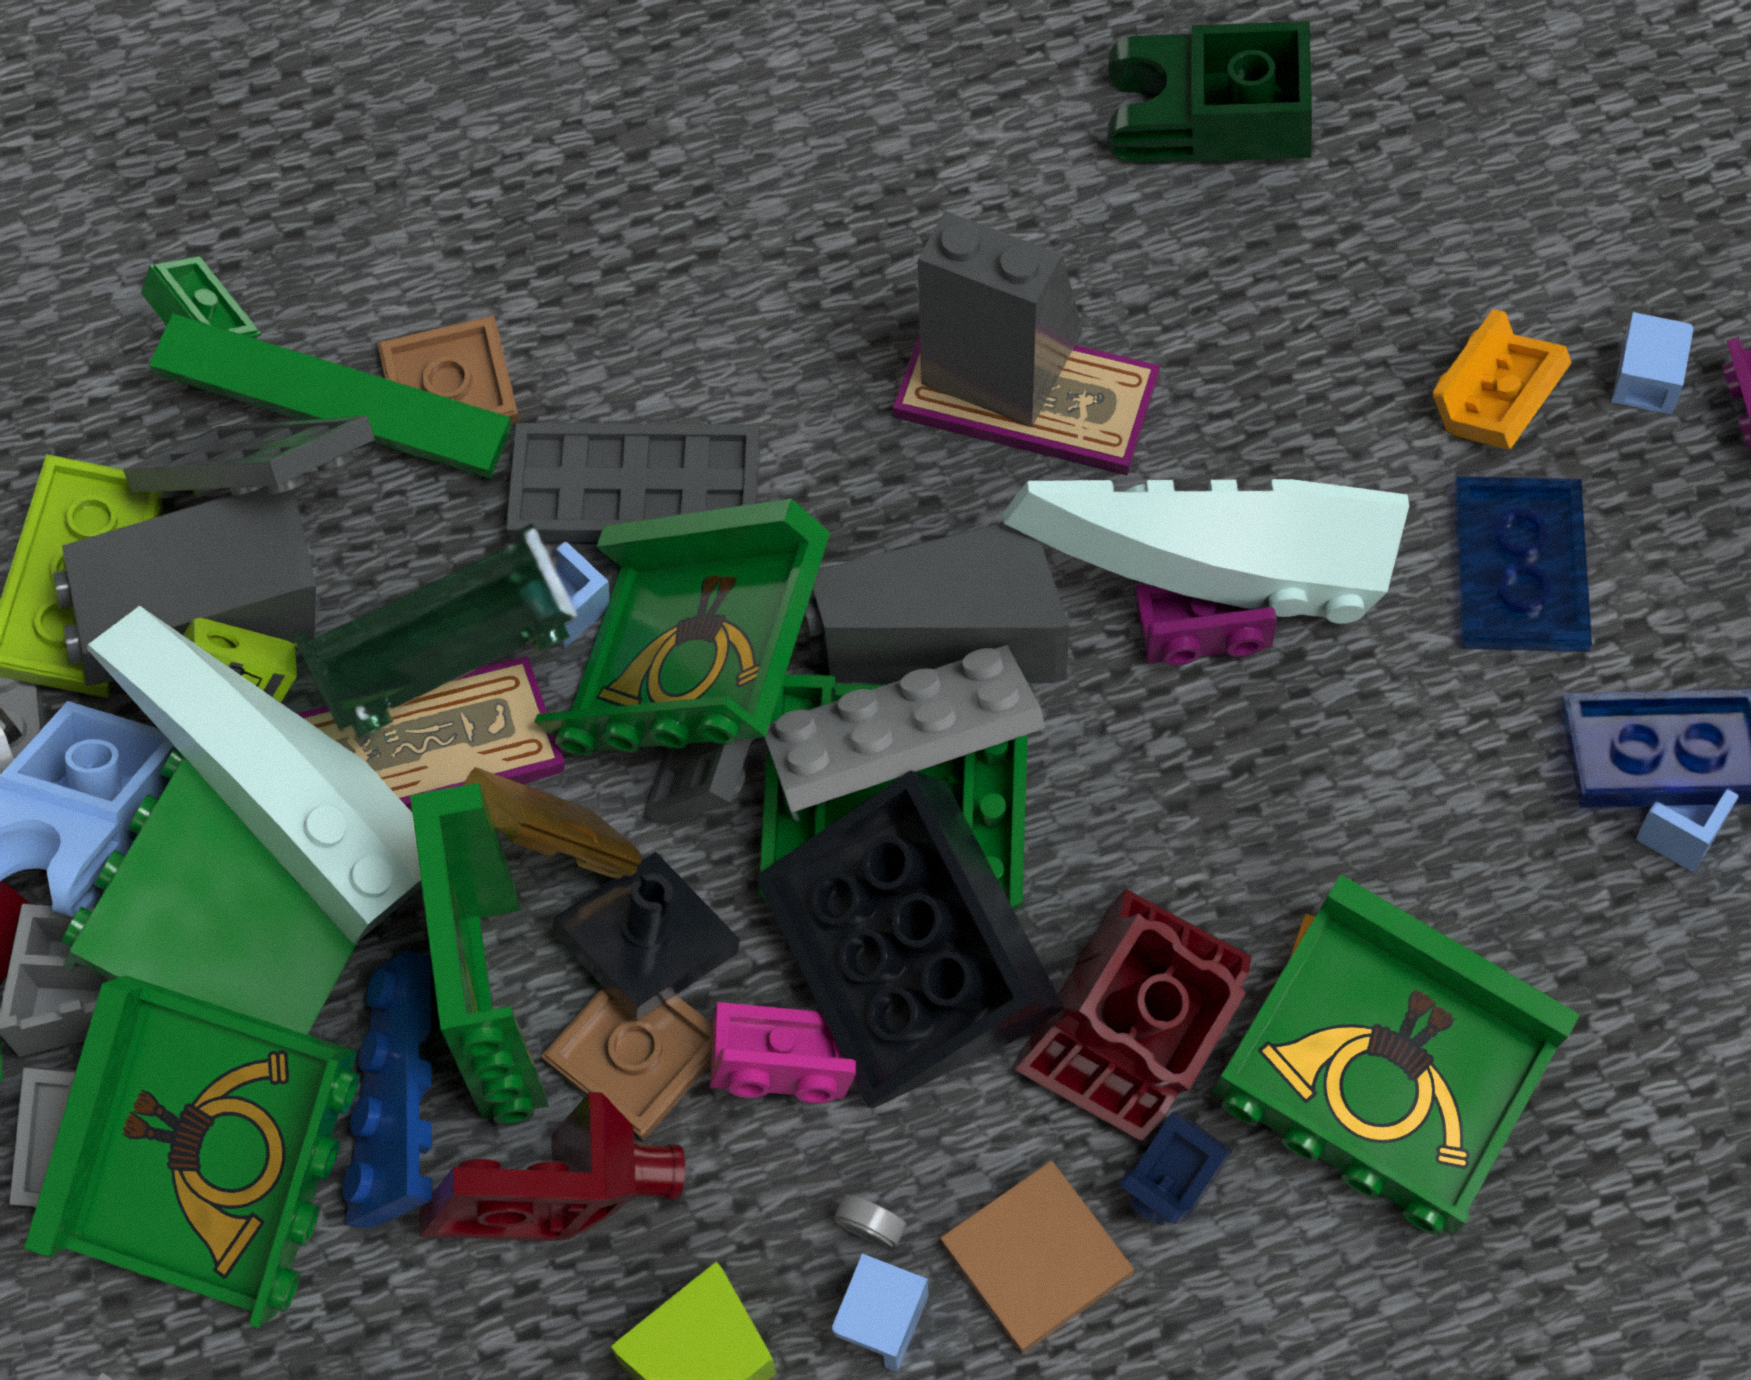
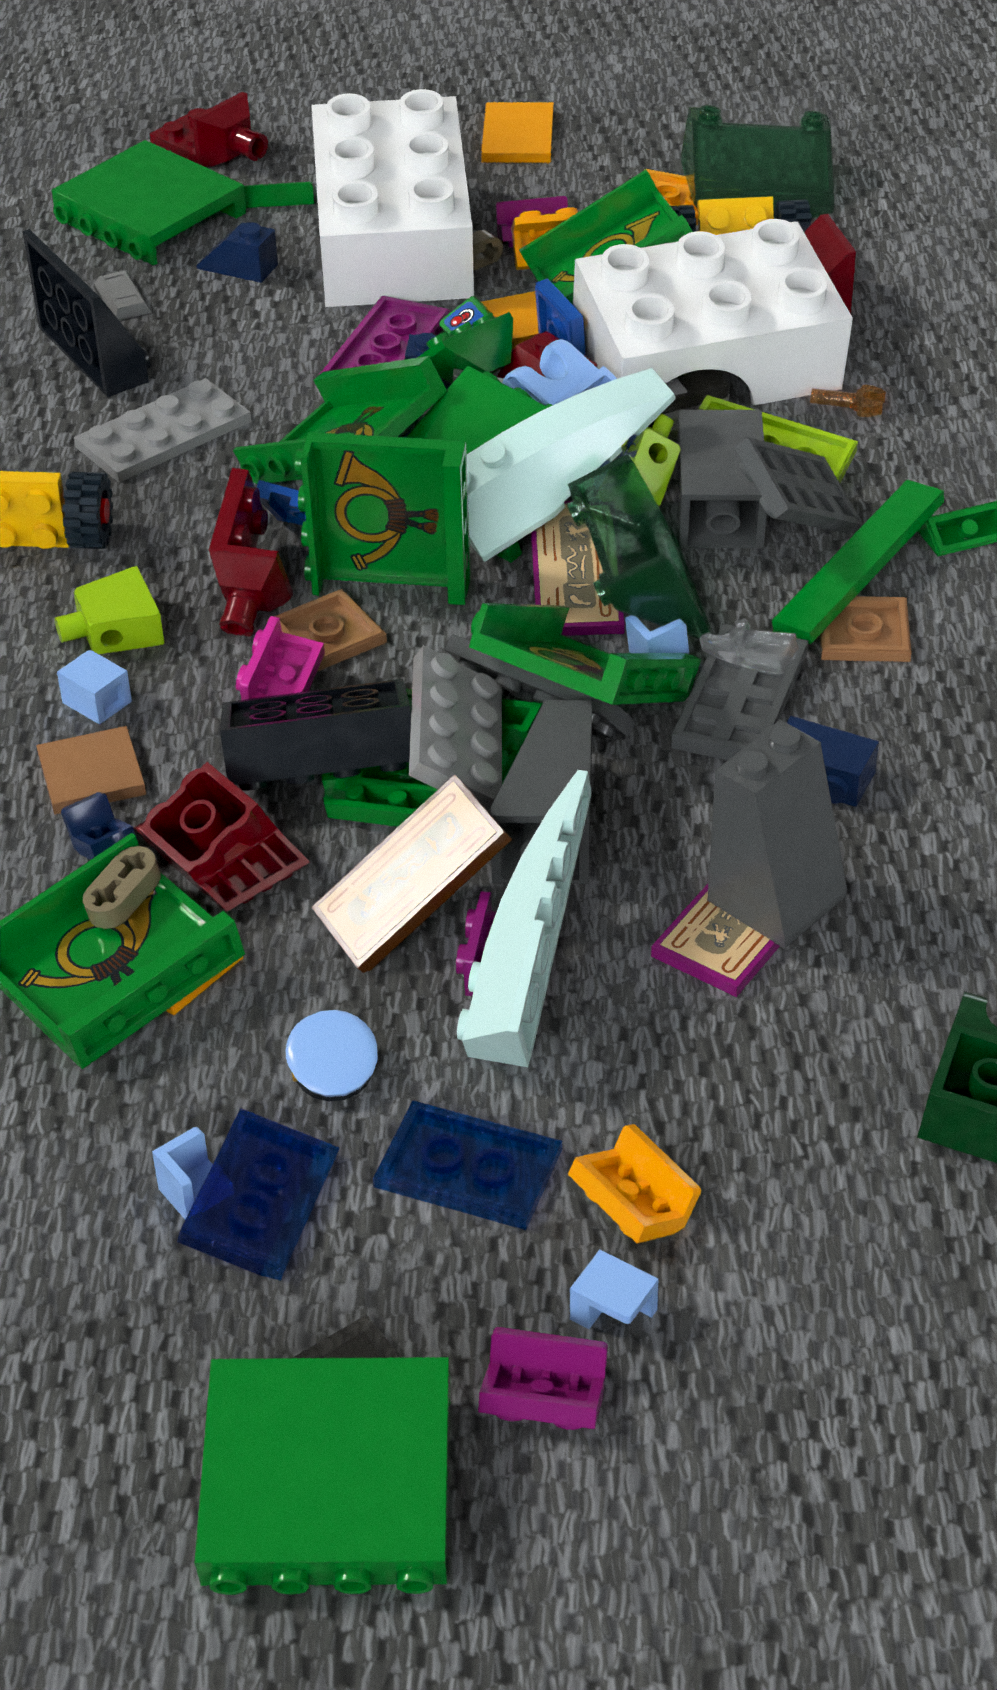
camera: 105 degrees right, 20 degrees down
(555, 825) = (472, 574): pearl gold piece -> none
(565, 467) = (754, 649): none -> clear slope
(645, 936) = (389, 634): black tile -> none
(748, 349) = (847, 758): none -> dark blue slope
(869, 1221) = (153, 695): light grey tile -> none
(1152, 722) = (411, 874): none -> tile
(1300, 1053) = (125, 879): none -> dark tan beam
(1443, 742) = (331, 1055): none -> light blue piece

